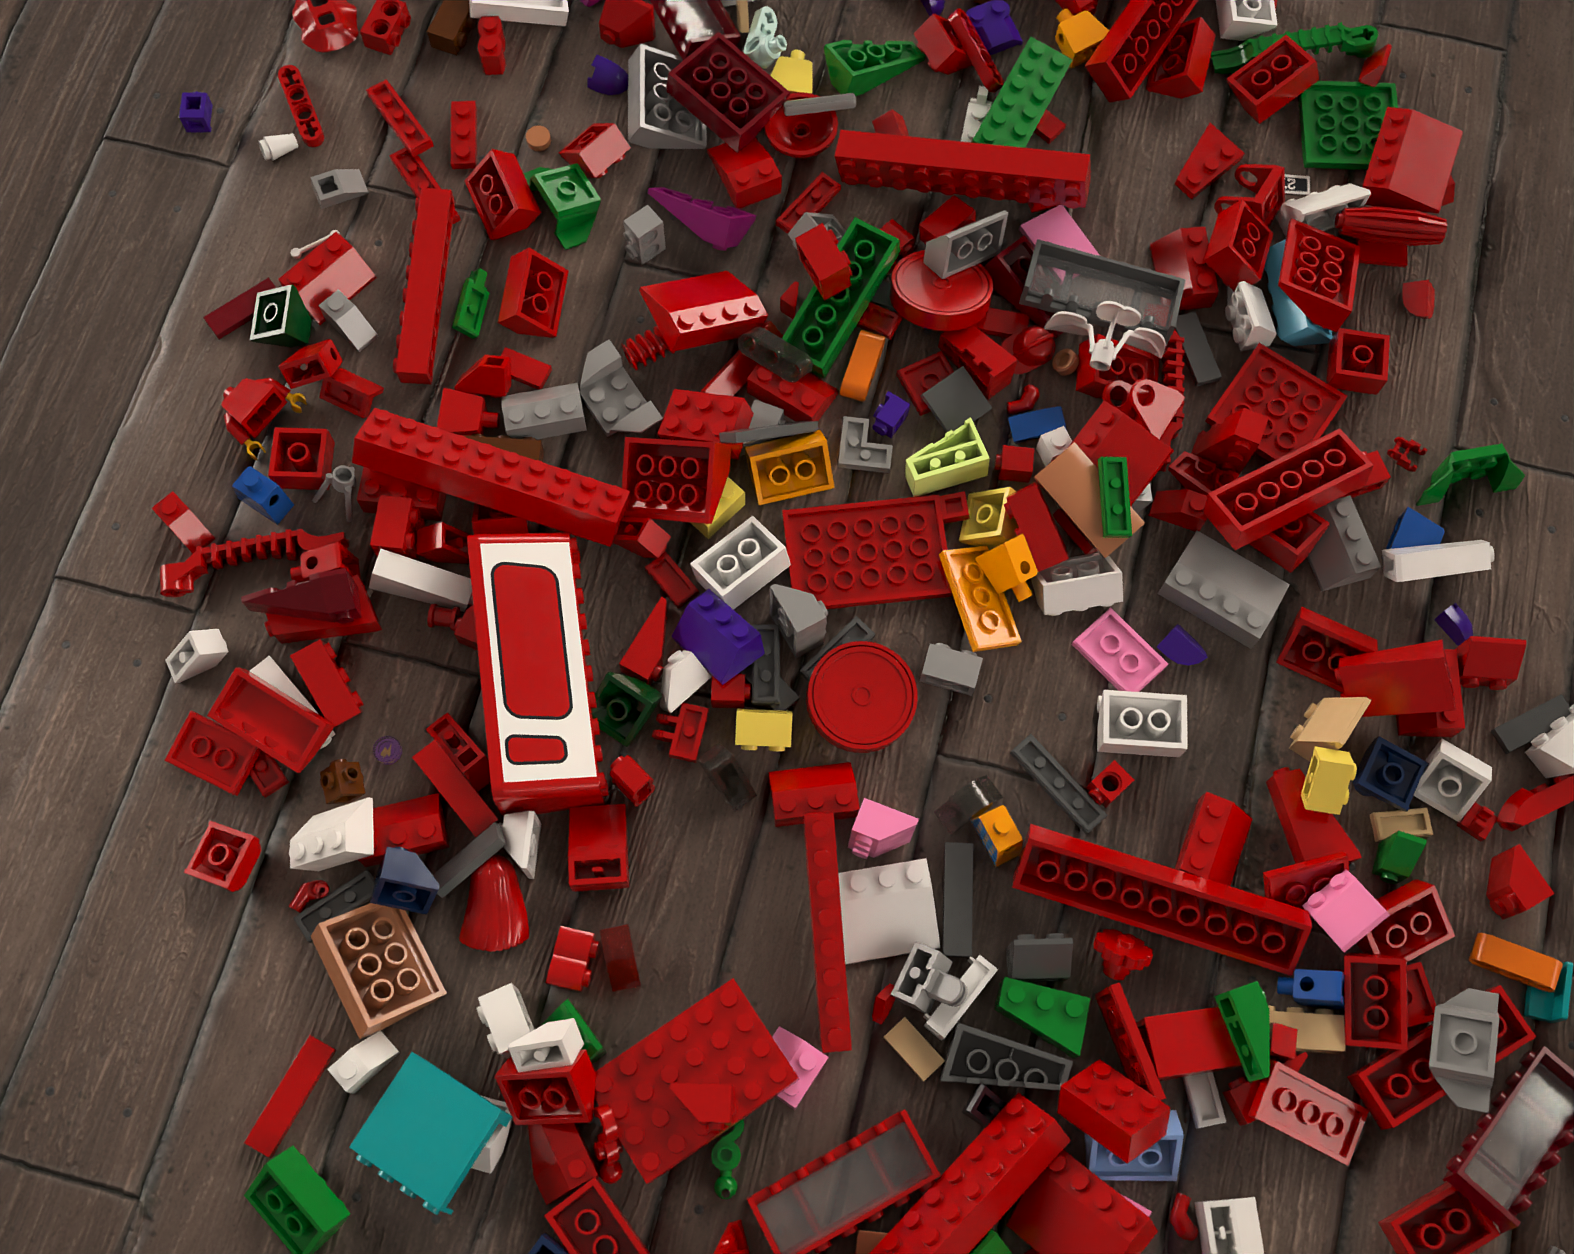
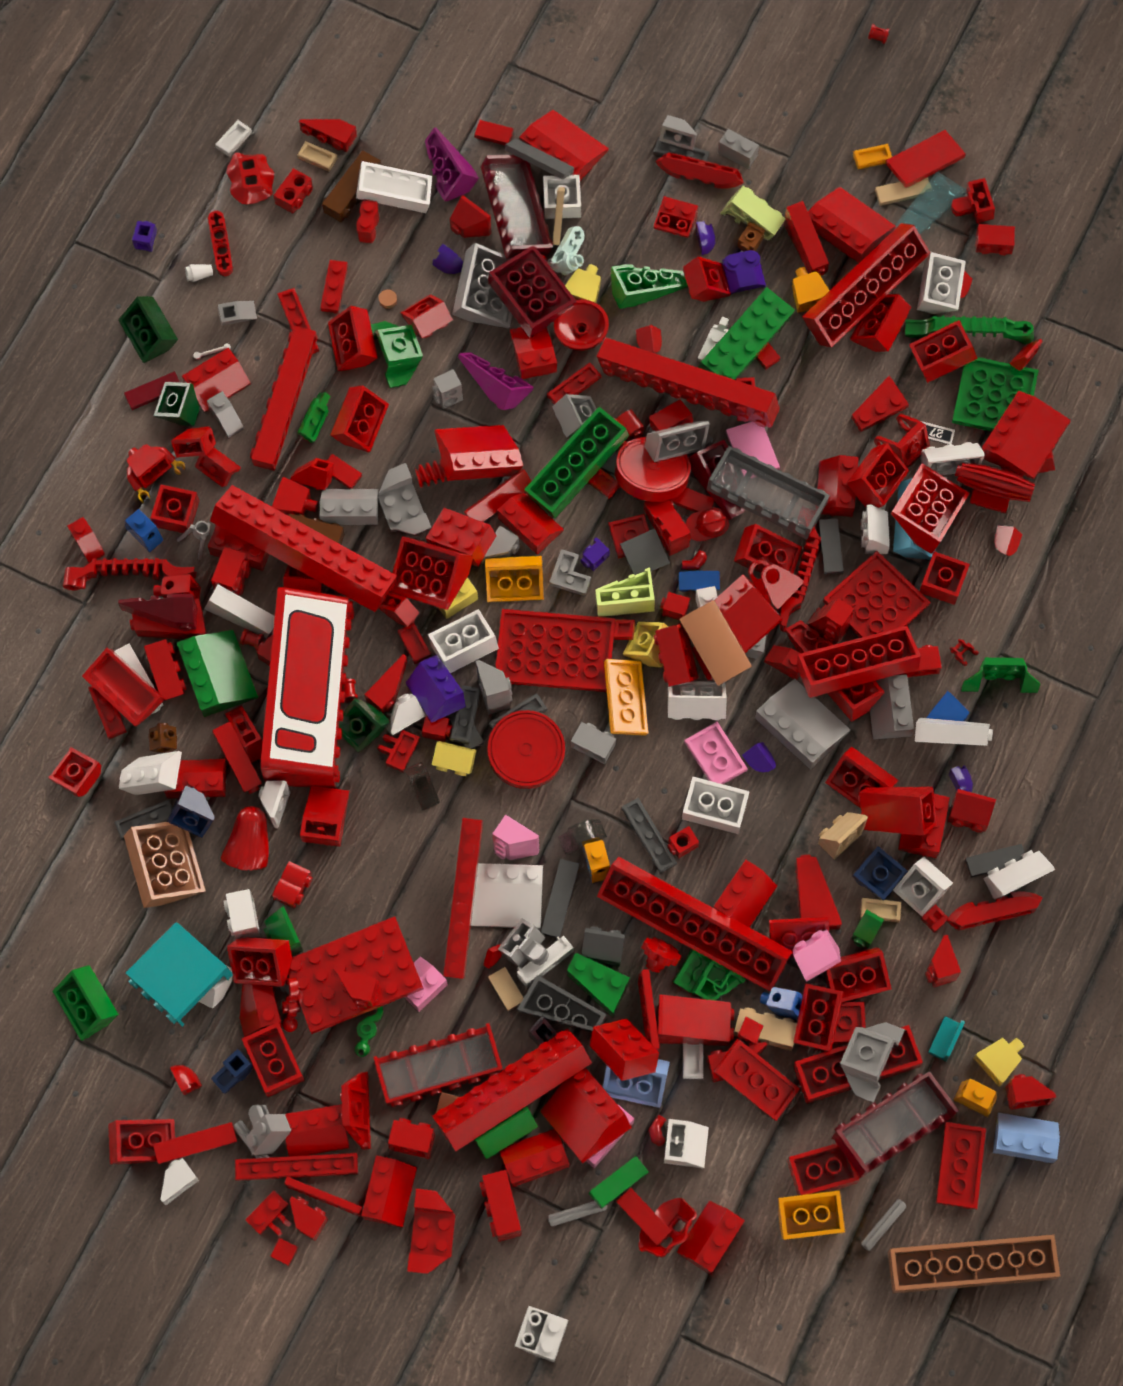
camera: 15 degrees right, 0 degrees up
(196, 653) = (80, 632): white slope -> none
(213, 753) = (80, 702): red tile -> none
(221, 228) = (147, 328): none -> dark green slope
(290, 1096) = (92, 935): red tile -> none
(309, 891) = (127, 806): red arm -> none
(363, 1062) = (143, 923): white slope -> none
(387, 750) = (196, 723): clear purple tile -> none
(399, 118) = (290, 266): red tile -> none
(403, 671) = (217, 671): none -> green slope
(442, 544) = (260, 588): red slope -> none
(469, 859) = (237, 805): dark grey tile -> none
(547, 1046) = (264, 933): white slope -> none
(596, 661) = (349, 690): none -> red bush
(620, 957) = (324, 890): clear red slope -> none
(631, 779) = (356, 774): red brick -> none
(767, 432) = (502, 551): dark grey tile -> none
(786, 358) = (520, 496): clear smoke beam -> none
(789, 300) = (543, 455): red slope -> none
(813, 790) = (477, 805): red slope -> none
(819, 104) = (597, 312): light grey axle -> none
(824, 261) = (567, 436): red brick -> none
(862, 366) = (584, 514): orange beam -> none
(976, 50) = (725, 288): red beam -> none
(1009, 567) = (650, 679): light orange torso -> none
(1065, 362) = (731, 538): nougat tile -> none
(1104, 350) = (754, 537): white plant -> none
(1114, 497) = (732, 644): green tile -> none
(1190, 972) = (706, 977): none -> green slope
(1249, 1027) = (729, 1011): green slope -> none
(1328, 780) = (827, 866): light yellow brick -> none
(1516, 962) = (928, 1014): orange beam -> none

